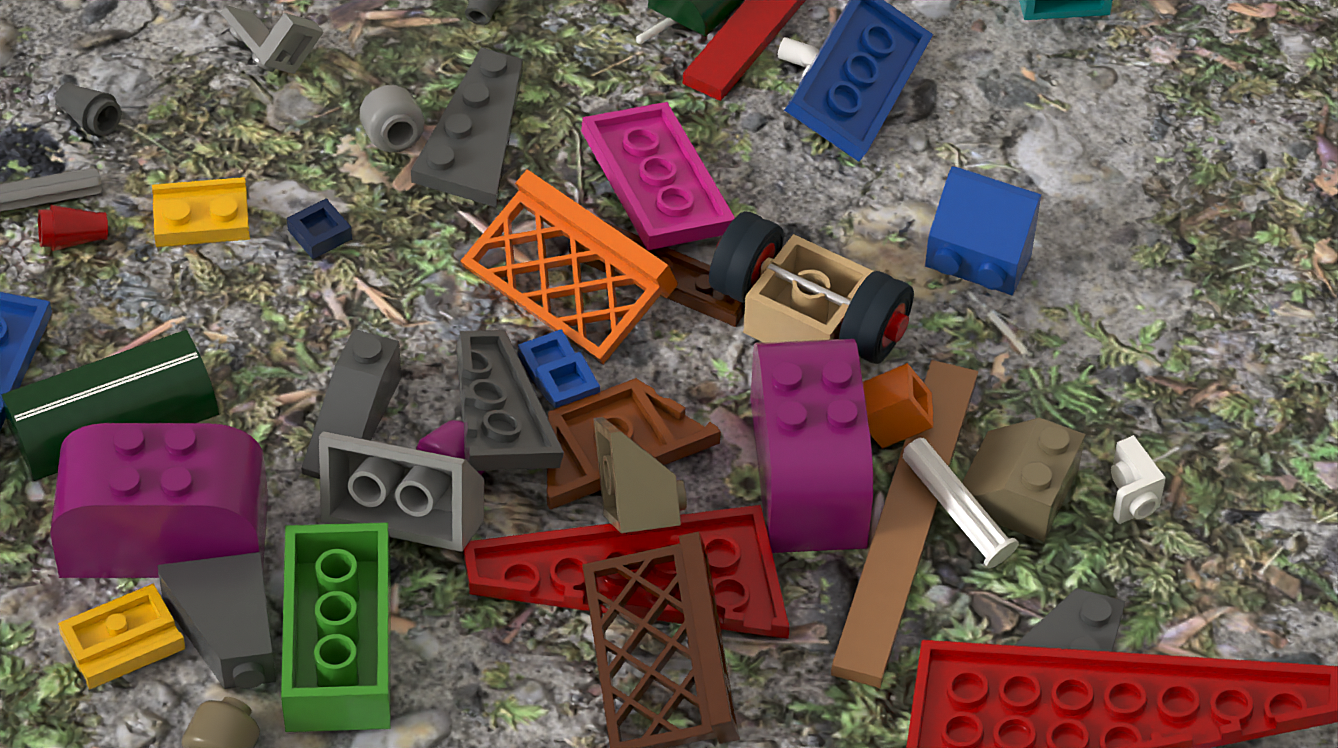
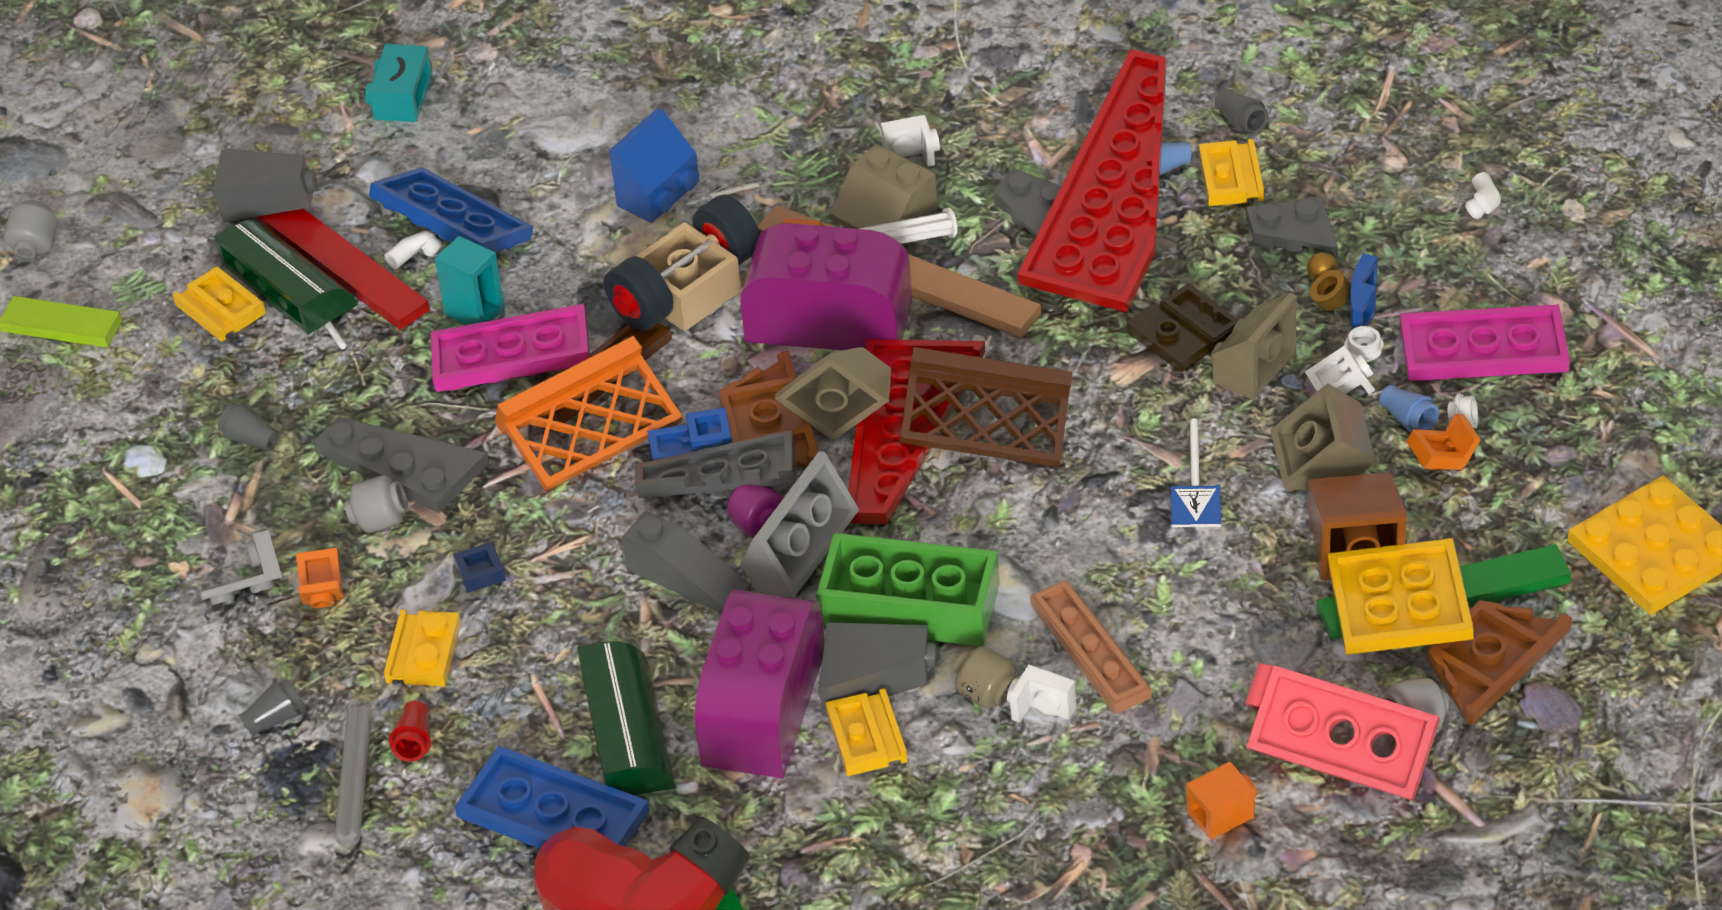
camera: 70 degrees left, 5 degrees down
(274, 100) = (319, 577): none -> orange bracket
(733, 109) = (469, 282): none -> teal brick

